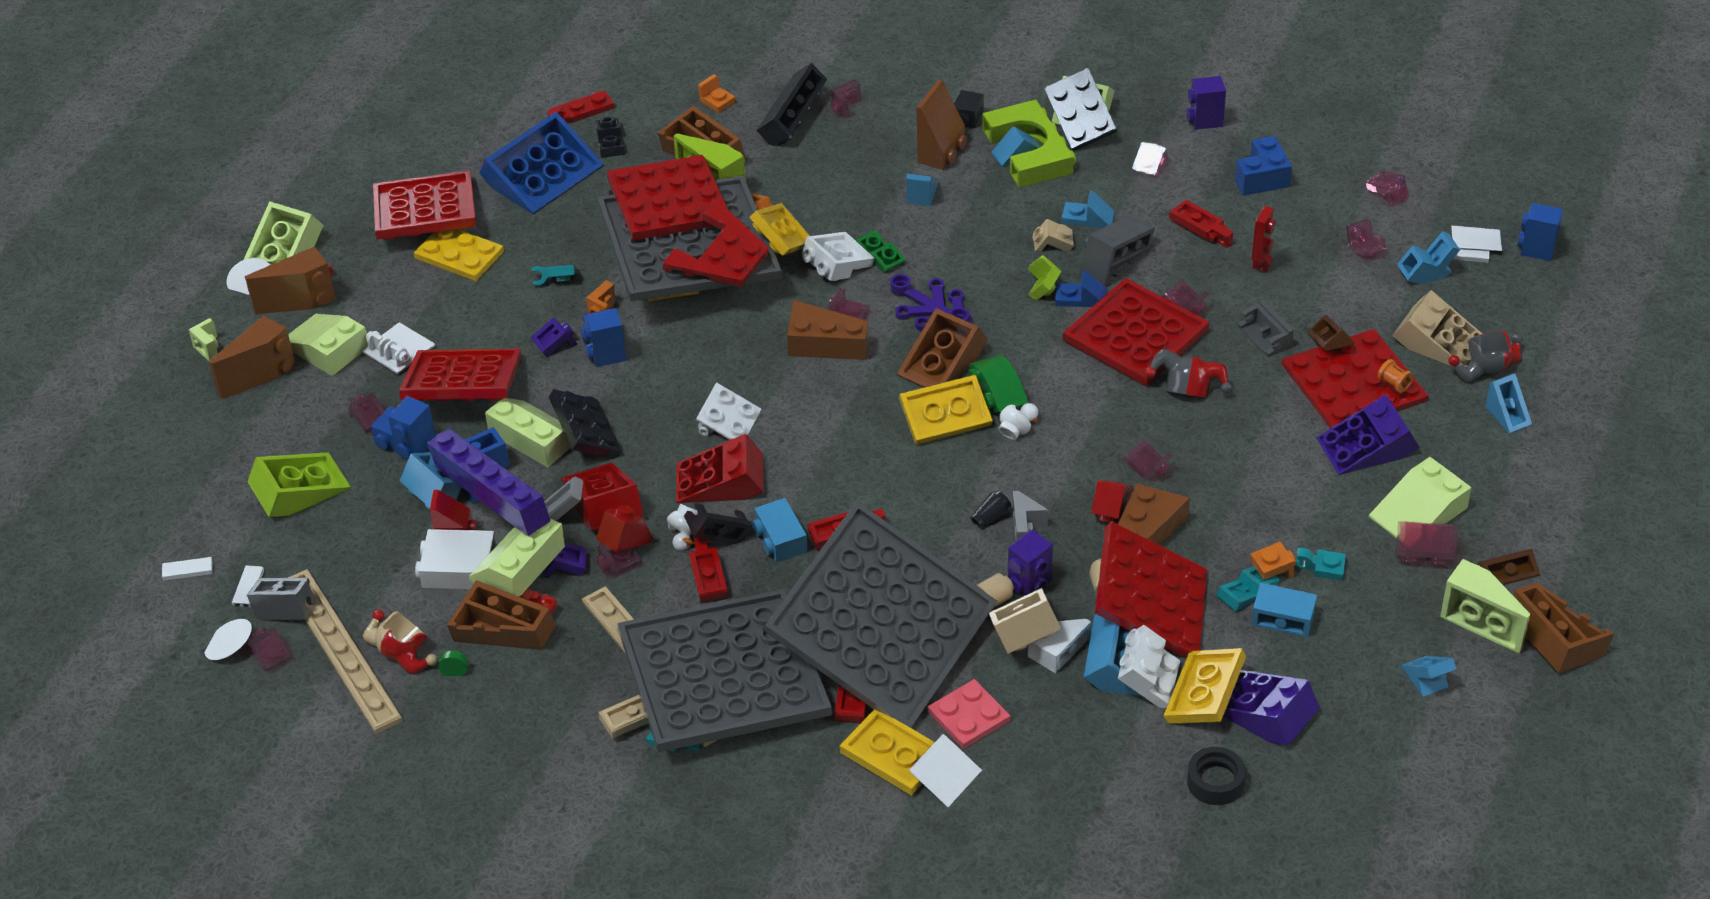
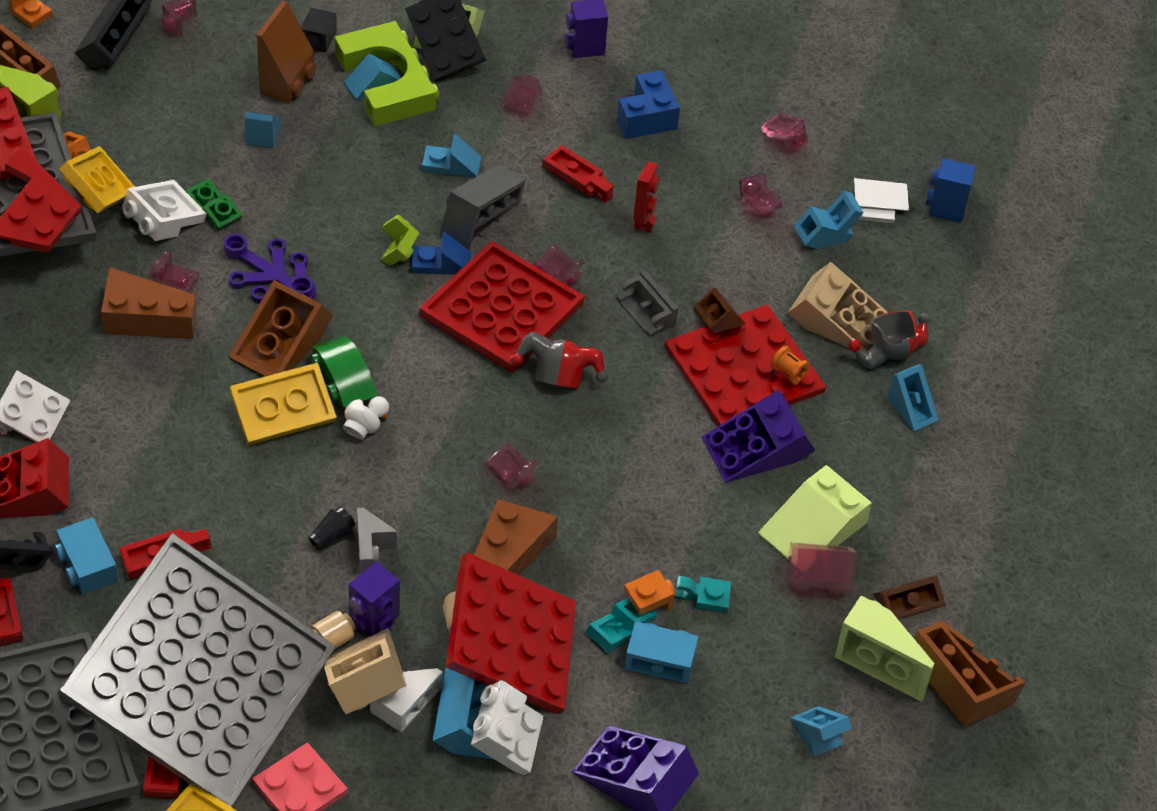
camera: 10 degrees left, 5 degrees up
(1054, 235) = (411, 186): tan bracket -> none
(1110, 499) = (468, 515): red slope -> none
(1205, 686) = (570, 750): yellow plate -> none

